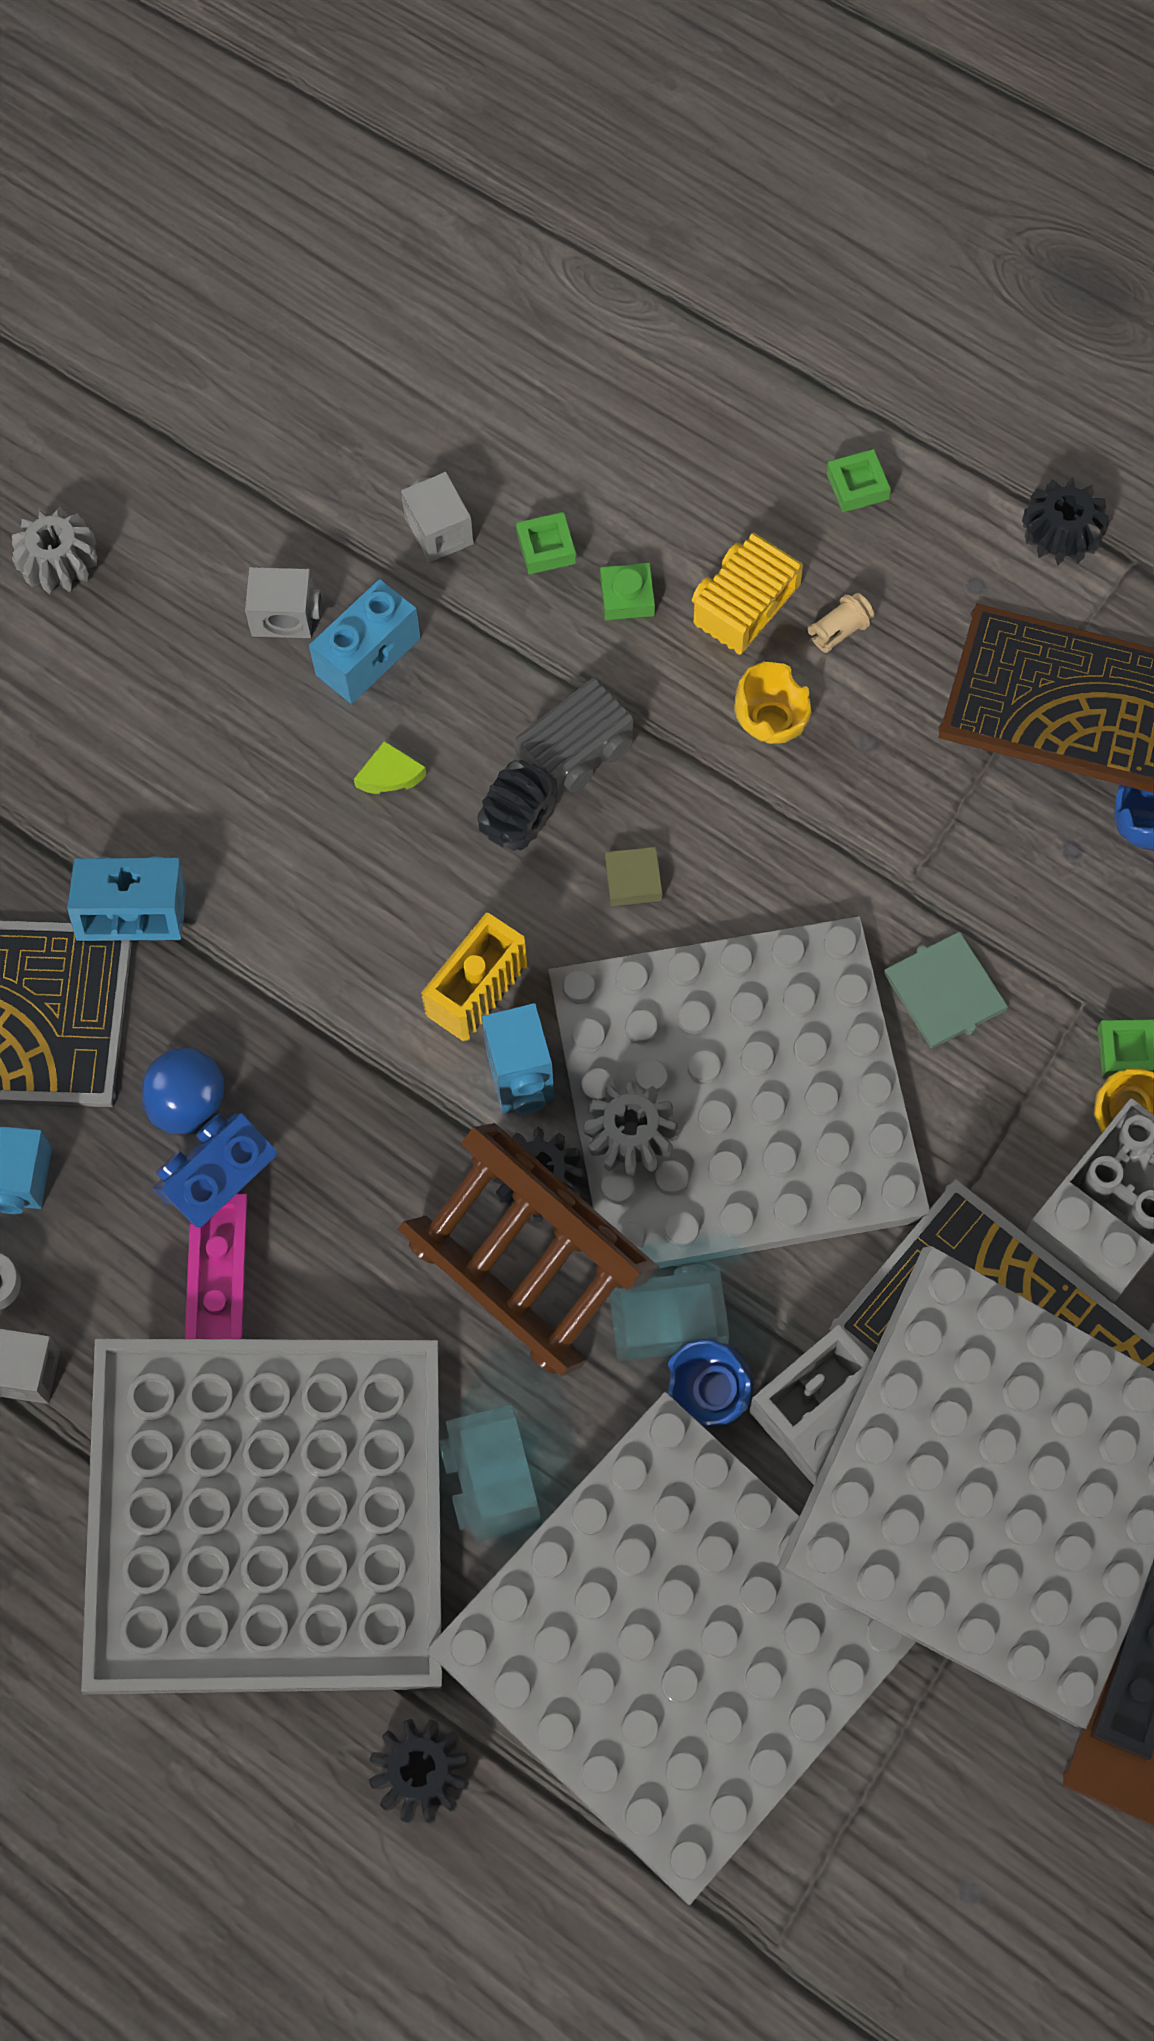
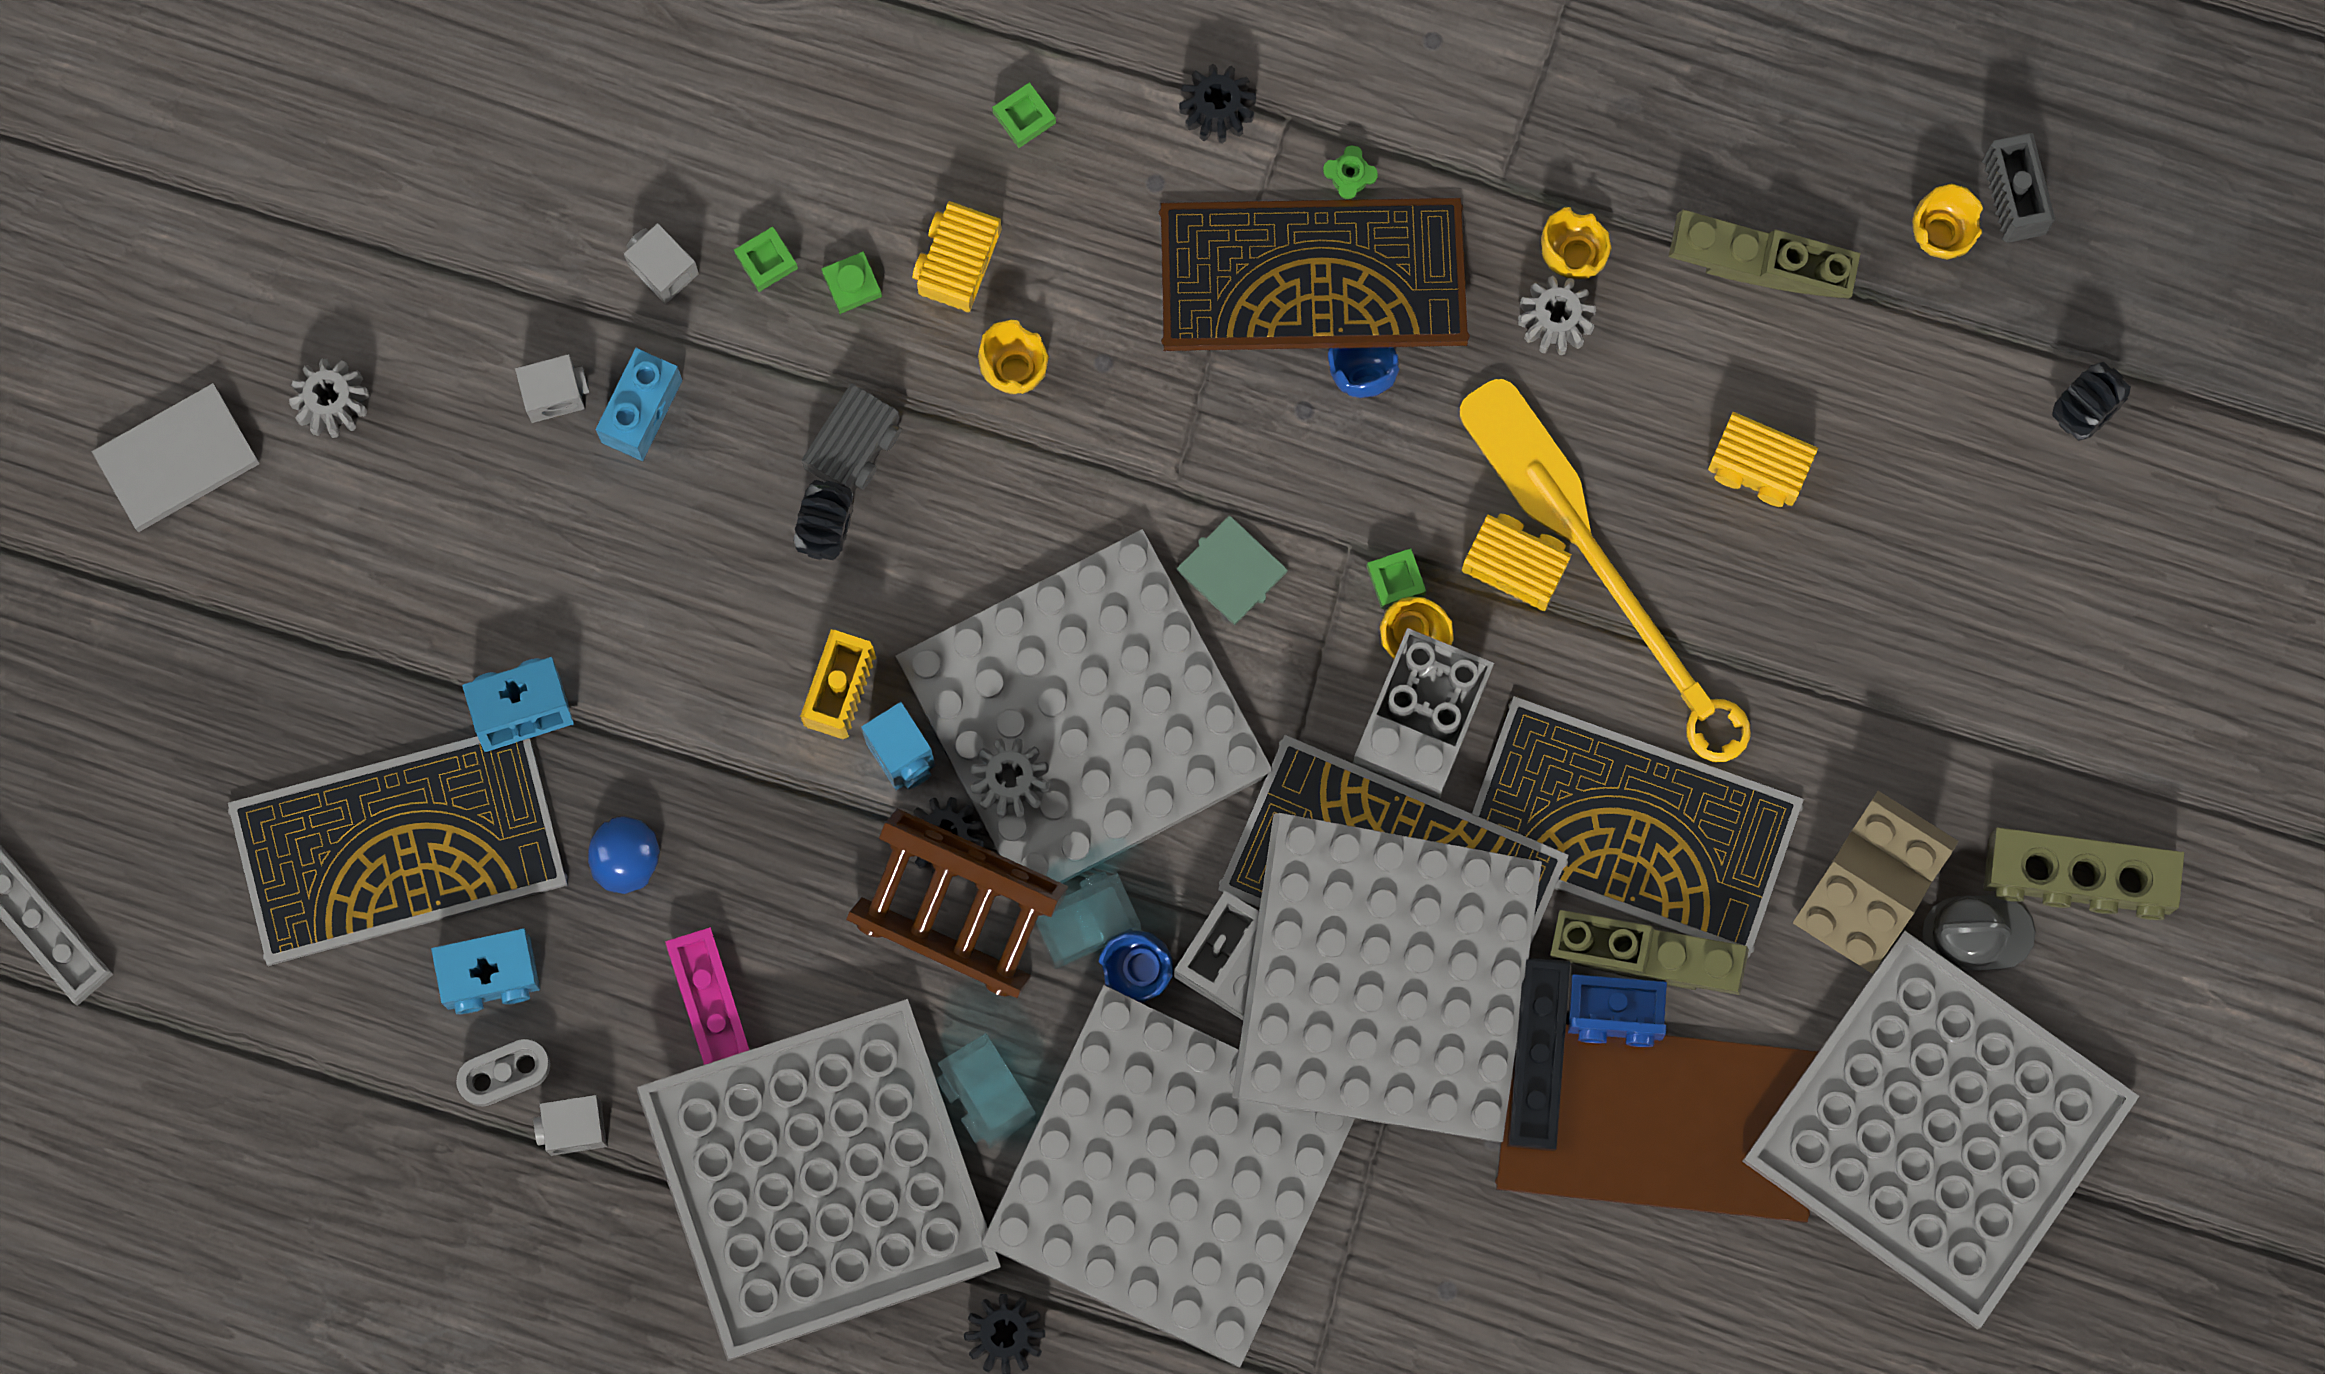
camera: 20 degrees left, 10 degrees up
(215, 1169) = (675, 914): blue bracket -> none
(389, 771) = (699, 516): lime tile -> none
(633, 876) = (940, 549): olive tile -> none
(841, 622) = (1049, 258): tan pin -> none

